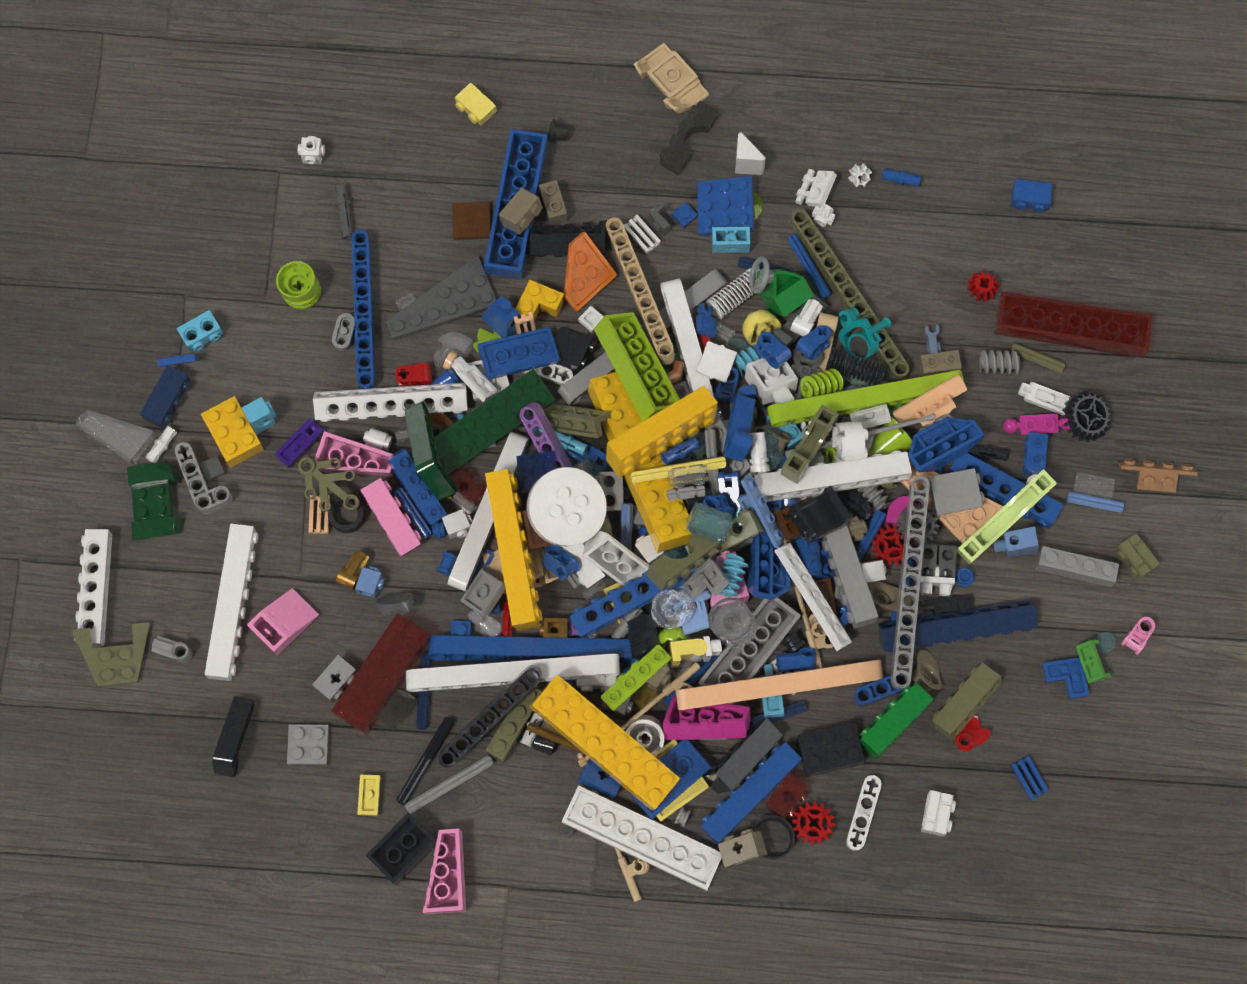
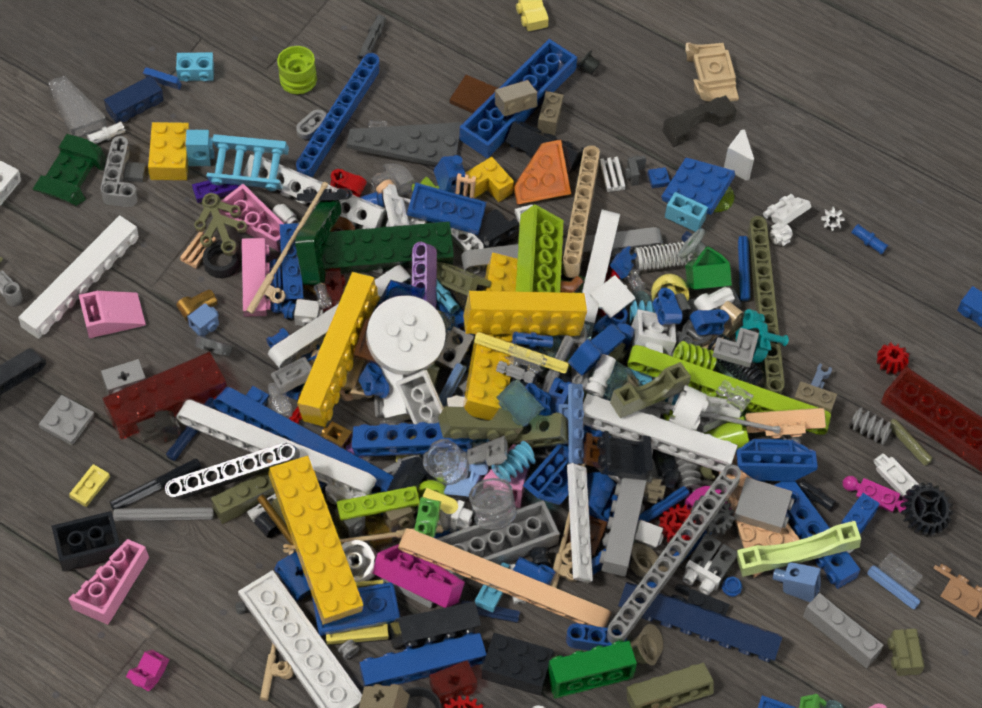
camera: 25 degrees right, 15 degrees down
(318, 389) = (241, 145): none -> medium azure fence
(405, 404) = (309, 195): none -> black plate
(420, 525) = (266, 288): none -> tan piece
(528, 933) = (149, 670): none -> dark pink brick
(688, 670) = (428, 516): none -> bright green hips
(860, 359) = (737, 352): none -> light grey plate
(881, 404) = (736, 396): none -> clear plate

